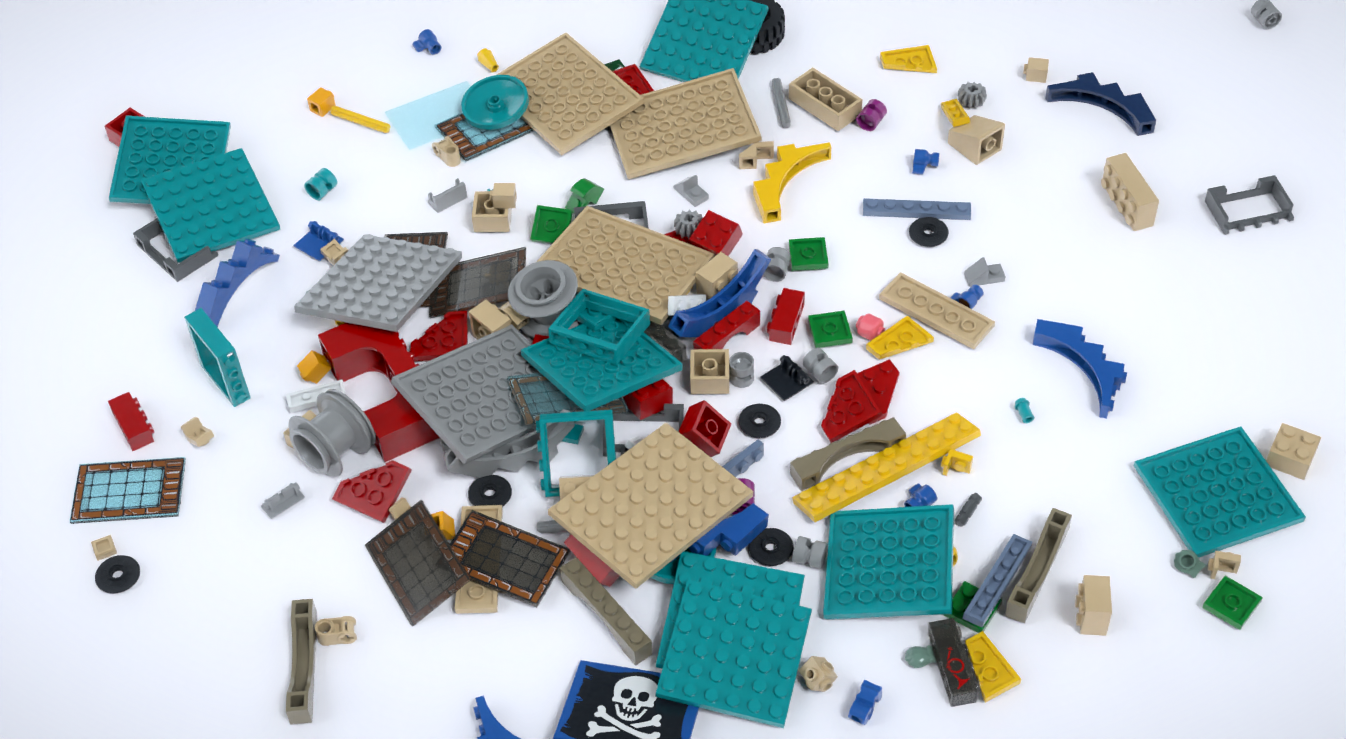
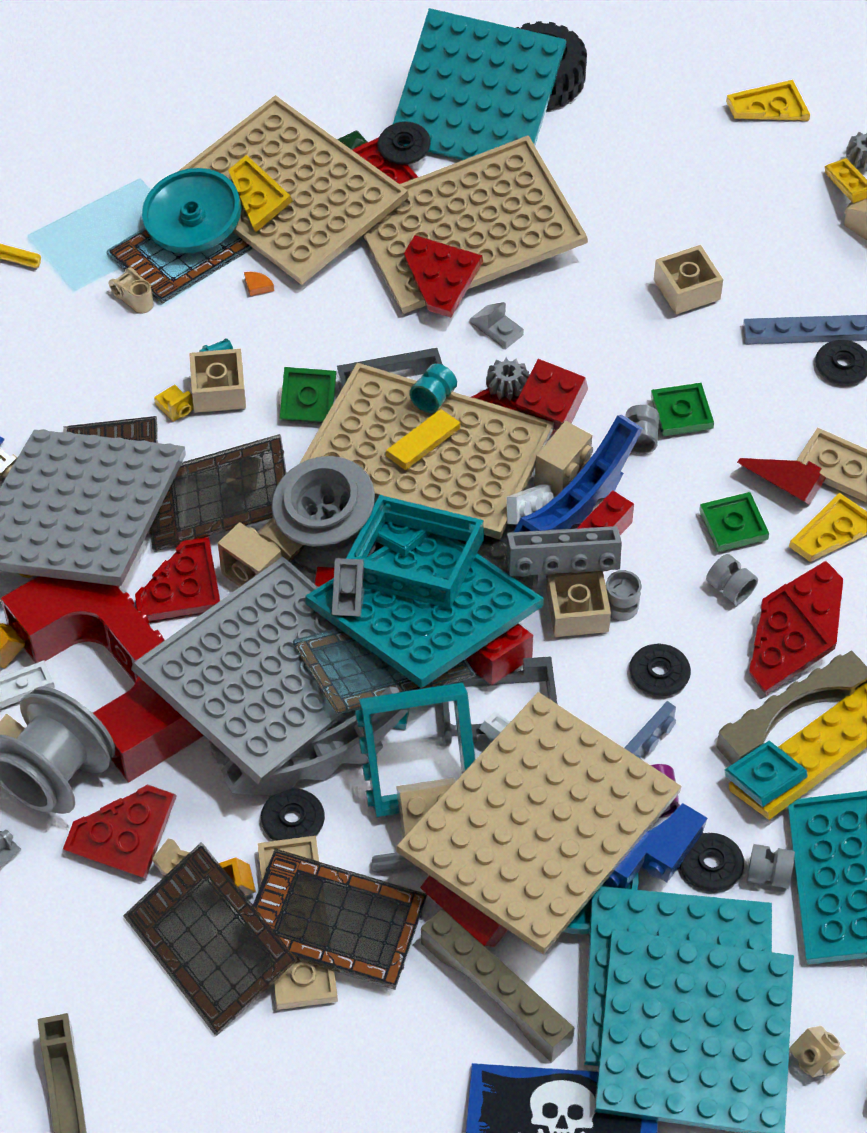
camera: 10 degrees left, 5 degrees up
(337, 630) = (109, 1054): tan piece -> none
(428, 40) = (72, 119): blue piece -> none
(448, 197) = (147, 361): light grey hinge -> none
(461, 224) = (174, 403): none -> yellow bracket
(487, 59) = (165, 143): yellow cone -> none
(504, 195) = (235, 357): tan brick -> none
(533, 153) = (258, 283): none -> orange tile
(542, 93) = (258, 192): none -> yellow wing
(548, 344) = (348, 587): none -> light grey slope
(583, 193) = (346, 341): green brick -> none
(620, 256) = (423, 439): none -> yellow tile
(633, 224) = (433, 388): none -> teal wheel
(657, 63) = (404, 155): none -> black wheel
(657, 153) = (441, 273): none -> red plate
(701, 334) = (563, 551): none -> light grey brick
(705, 428) = (590, 691): red brick -> none
(758, 150) = (585, 256): tan slope -> none
(778, 174) = (616, 291): yellow arch -> none
(781, 102) = (600, 181): light grey axle -> none
(786, 316) = (668, 507): red brick -> none
(787, 378) = (687, 602): black hinge -> none
(817, 491) = (766, 773): none -> teal tile
(825, 99) = (664, 172): tan brick -> none
(828, 169) = (688, 279): none -> tan brick
(869, 326) = (790, 514): coral head -> none
(871, 115) = (733, 191): magenta wheel -> none
(874, 301) = (790, 475): none -> red slope
(922, 159) = (814, 253): blue piece -> none

